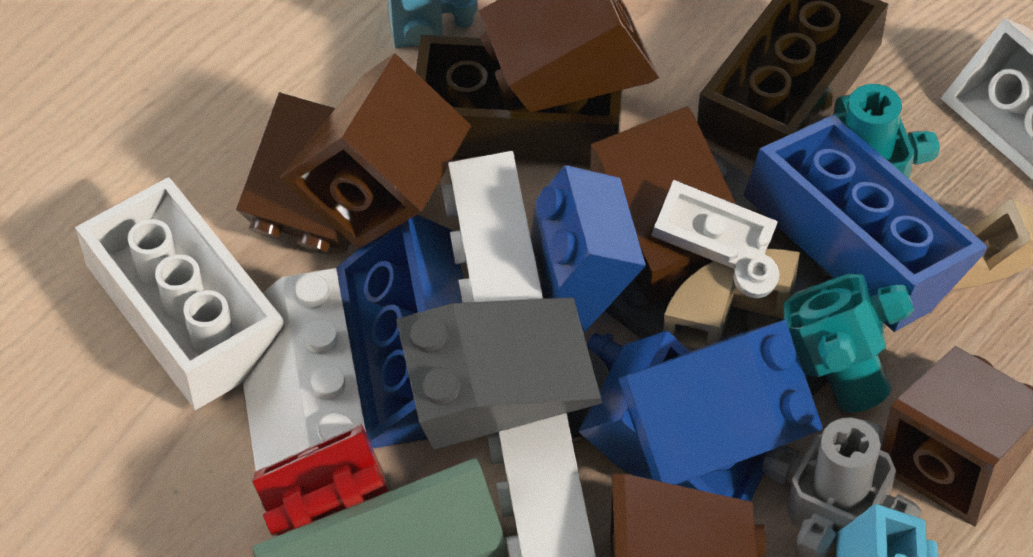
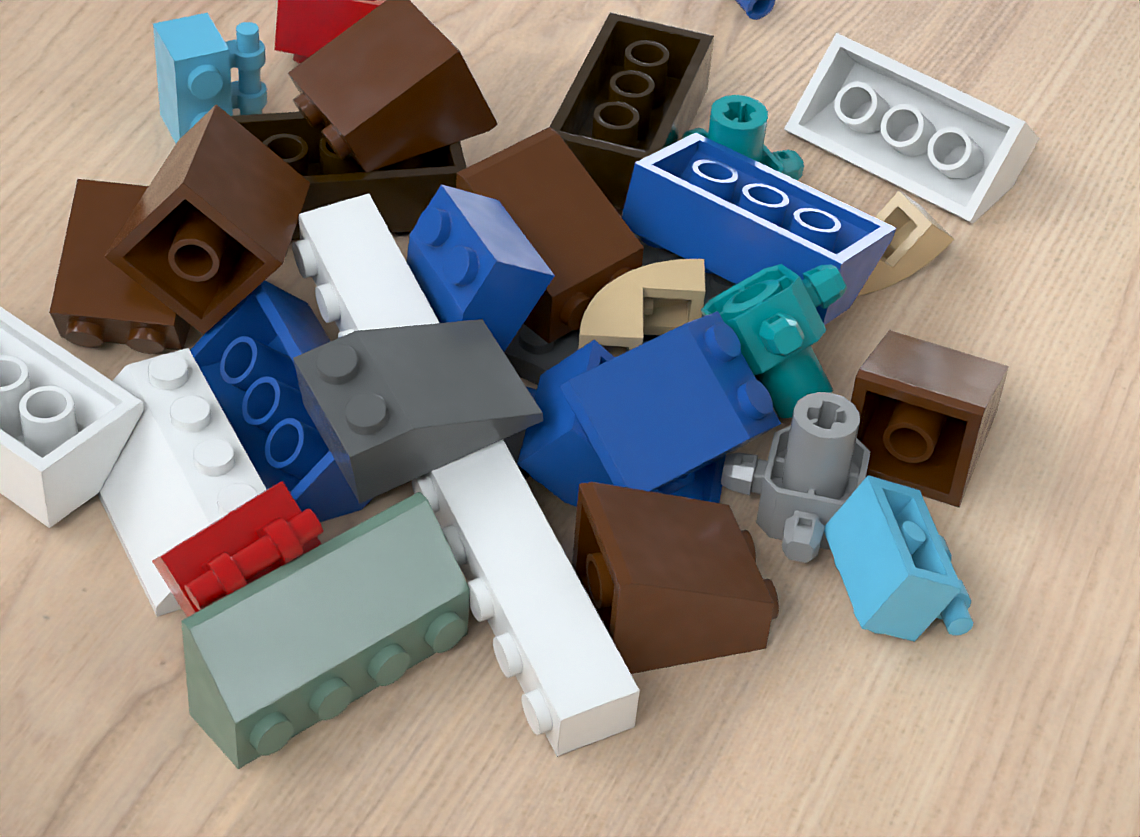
camera: 20 degrees left, 10 degrees down
(720, 234) = (620, 244): white hinge -> none

